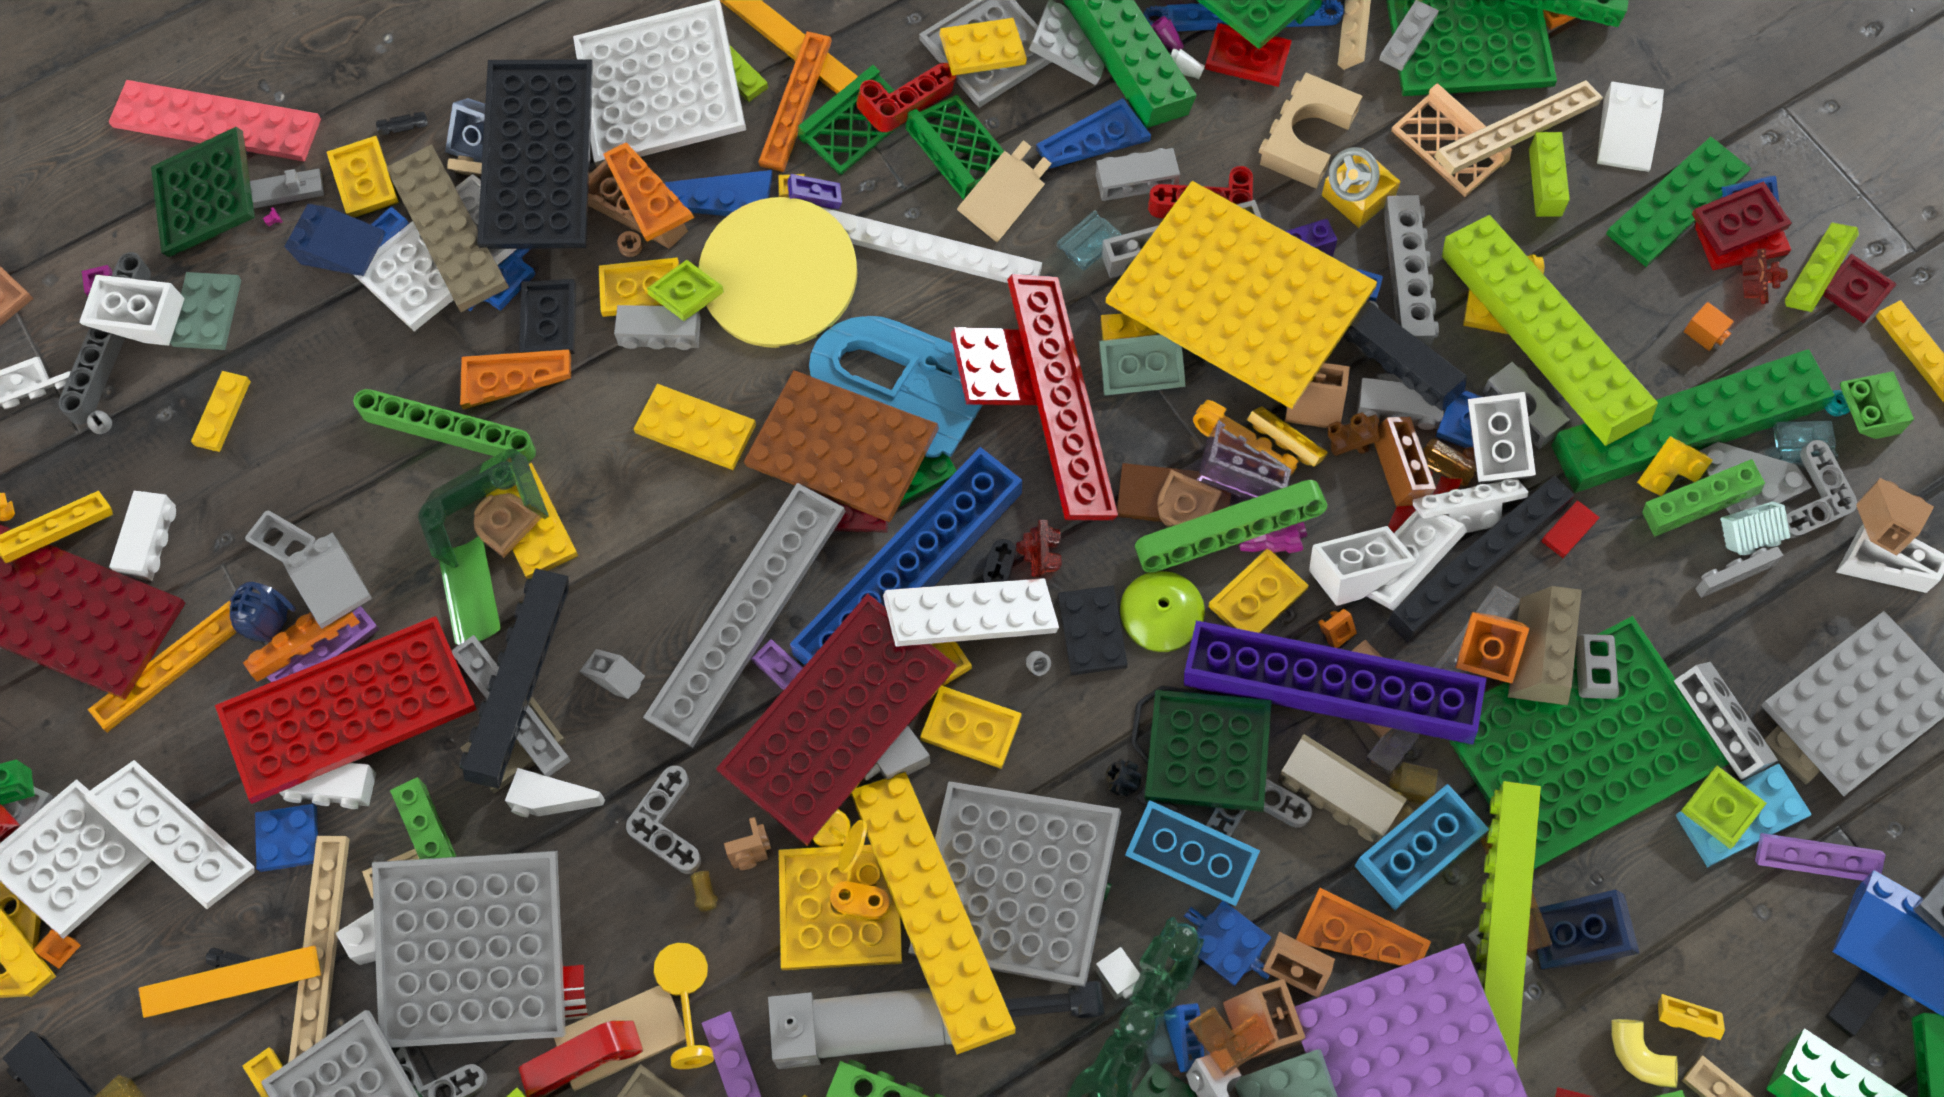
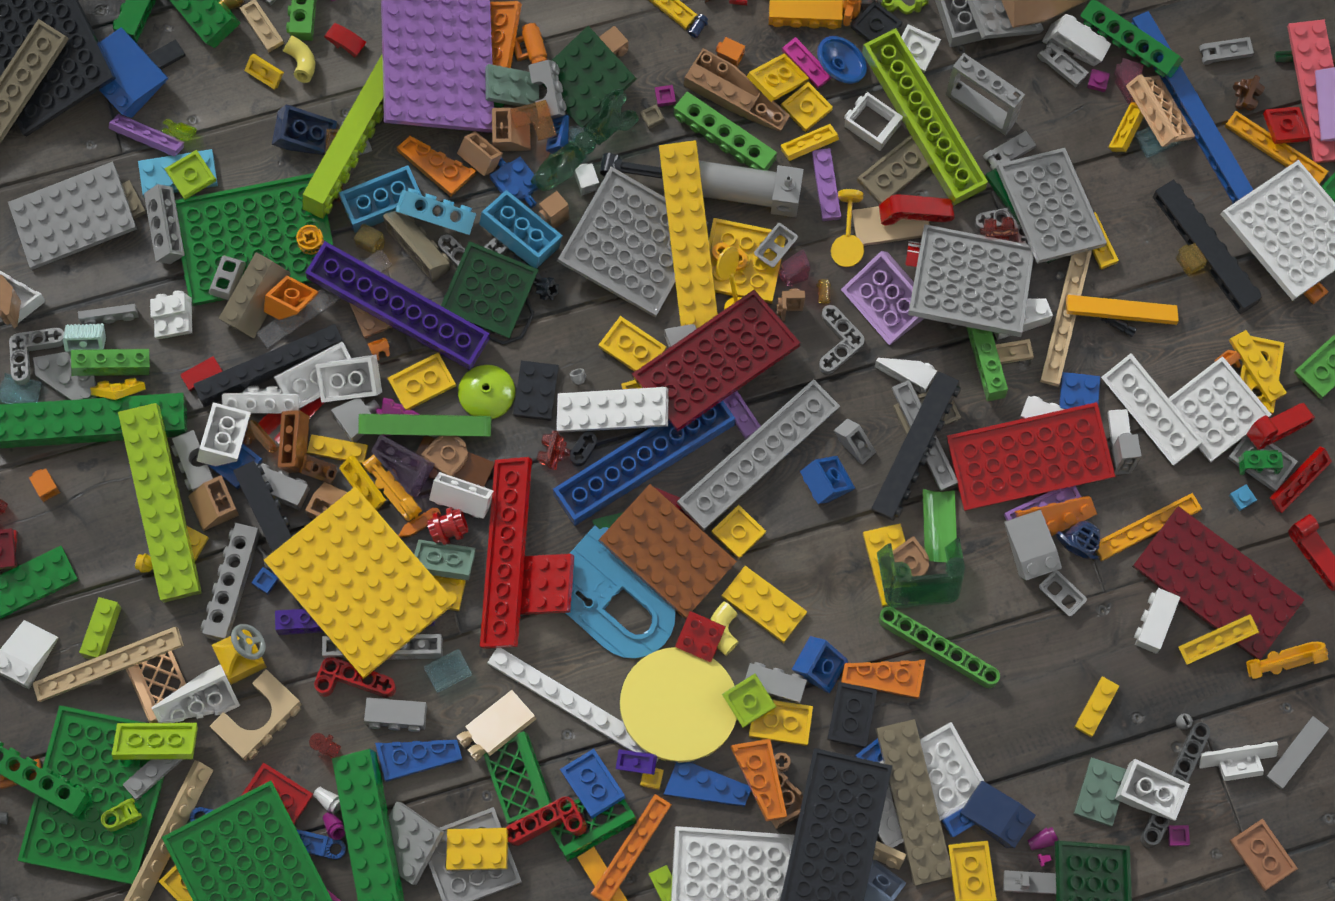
camera: 170 degrees left, 5 degrees up
(28, 744) = (1242, 497): none -> dark azure plate
(200, 738) = (1125, 453): none -> light grey brick
(220, 798) = (1118, 423): none -> white tile
(274, 235) = (1043, 839): none -> magenta cone
(442, 1060) = (991, 229): none -> clear red hips
(603, 365) = (820, 663): none -> blue slope
(608, 907) = (883, 296): none -> lavender slope
(640, 608) = (827, 479): none -> blue slope
(747, 377) = (724, 615): none -> light yellow cylinder
(750, 506) = (738, 532): none -> yellow plate
(754, 906) = (795, 269): none -> clear pink slope
(769, 353) = (700, 636): none -> red hinge
(781, 931) = (768, 243): none -> light grey piece
(863, 155) = (592, 783): none -> blue plate
(1147, 450) = (461, 495): none -> white brick
(1151, 407) = (447, 526): none -> red piece
(1151, 895) = (554, 210): none -> medium nougat brick
(1184, 418) = (417, 524): none -> orange piece
(1207, 110) = (324, 746): none -> clear red hips
(1338, 521) = (348, 415): none -> light grey torso
(1341, 828) = (406, 206): none -> medium azure brick
(1343, 476) = (336, 448): none -> yellow plate
(1393, 127) = (202, 696): none -> white wedge
(1420, 57) = (154, 741): none -> lime plate
(1474, 356) = (213, 503): none -> medium nougat slope
(1501, 750) = (309, 239): none -> light orange wheel
(1650, 593) = (171, 314): none -> white plate
(1772, 879) = (181, 131): none -> clear neon green plate

